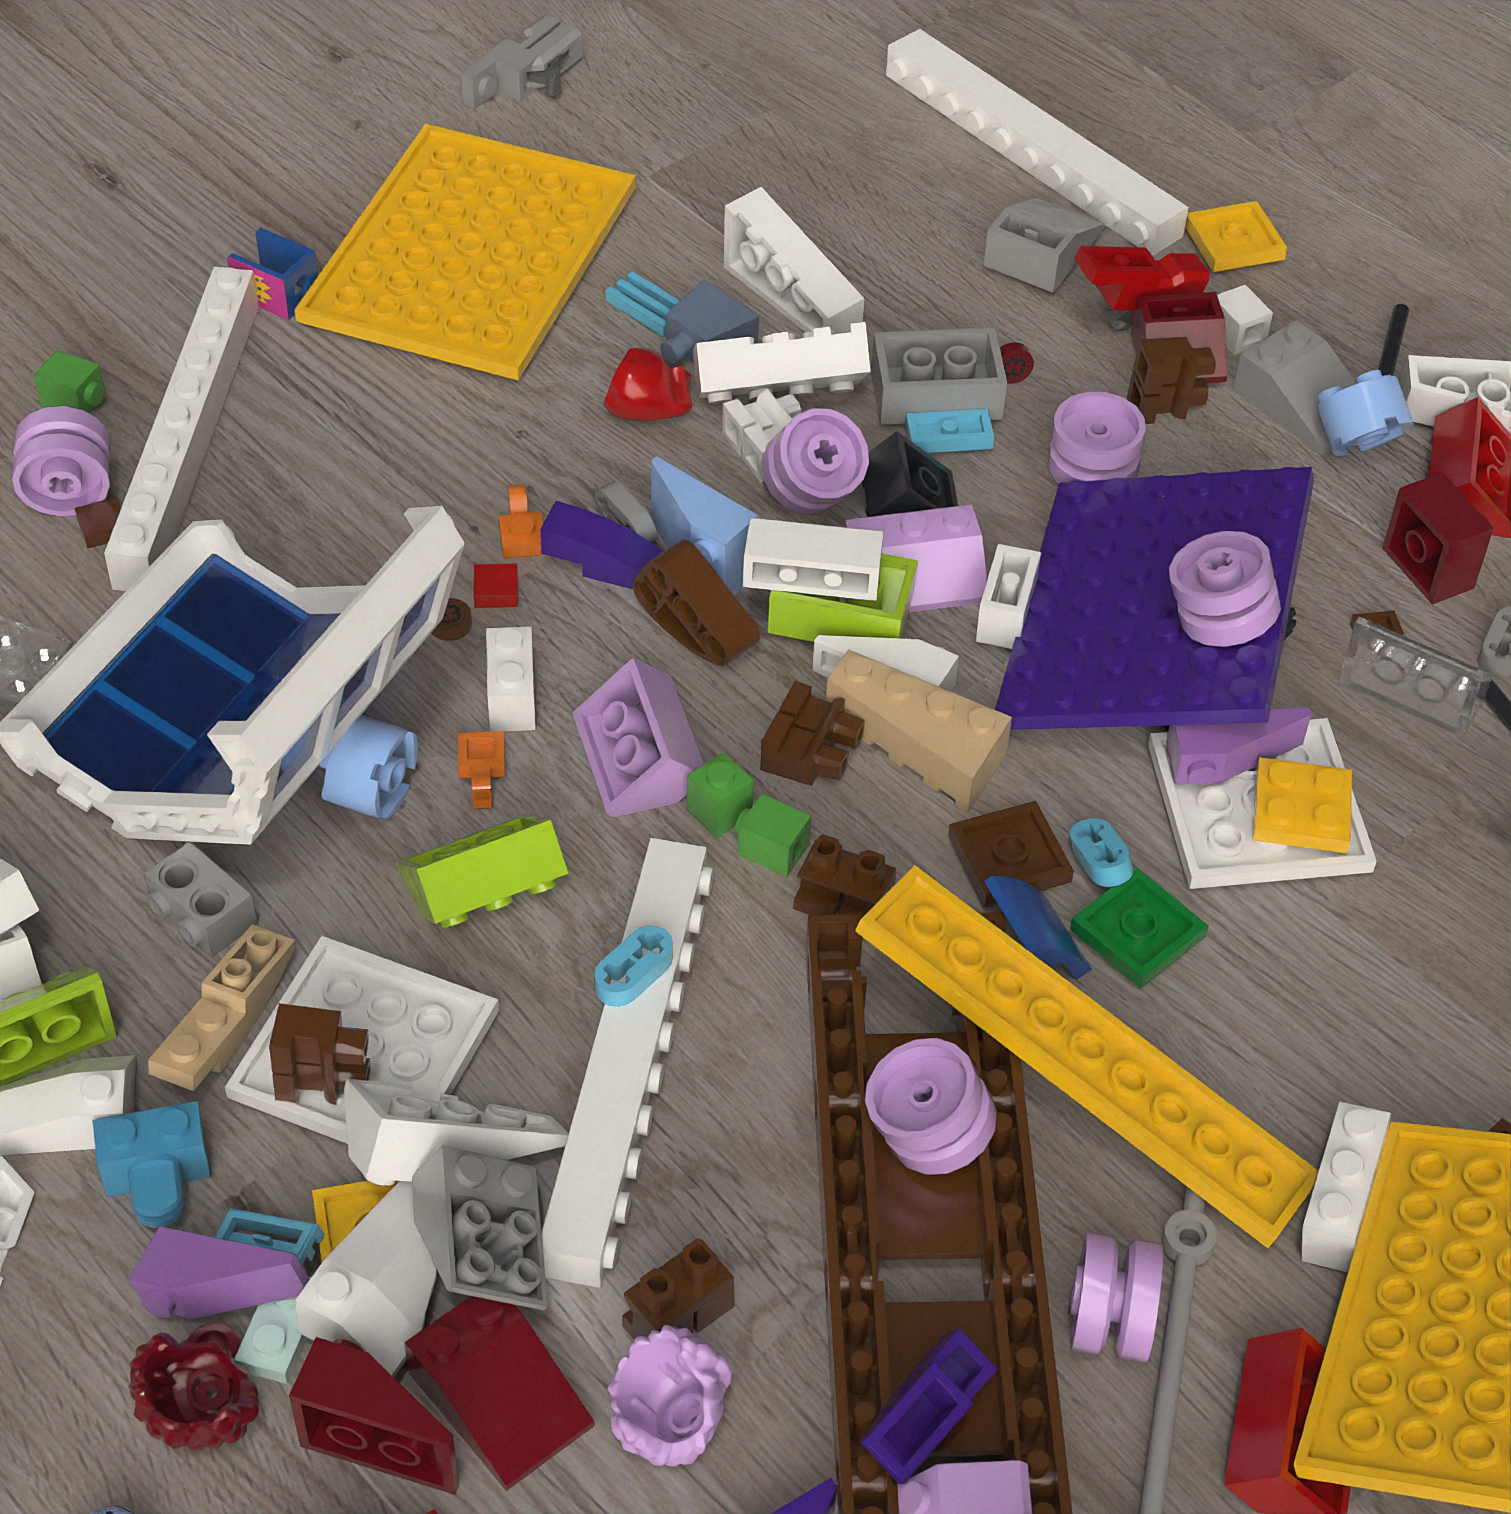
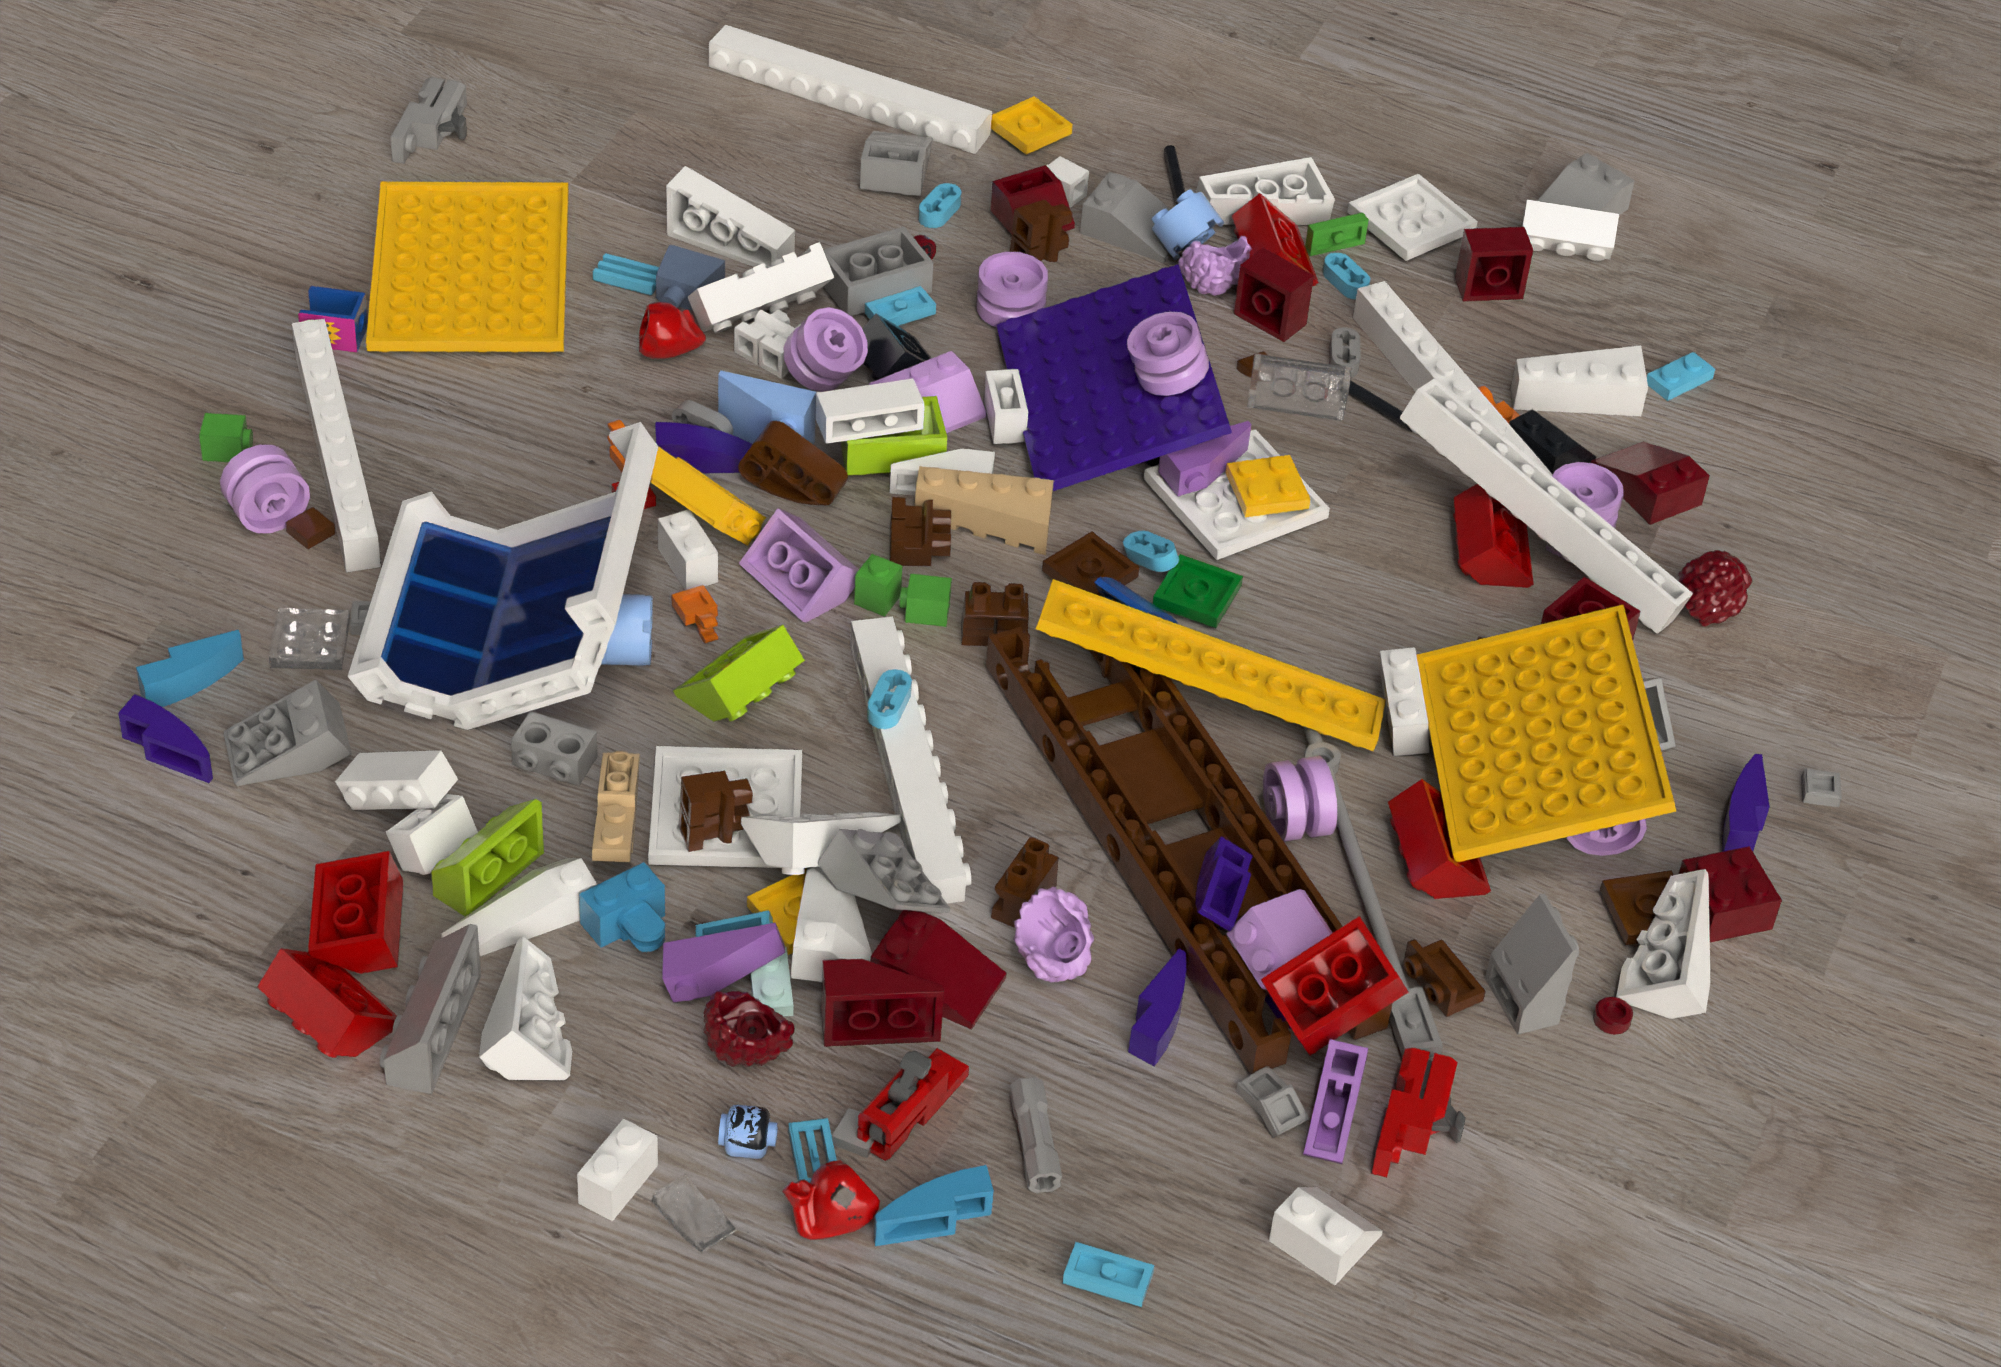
camera: 25 degrees left, 5 degrees down
(557, 610) = (706, 498): none -> yellow door
(931, 1106) = (1135, 720): lavender wheel -> none
(1070, 311) = (939, 205): none -> medium azure beam
(1133, 272) = (981, 165): red plate -> none
(1372, 476) = (1213, 268): none -> lavender hair

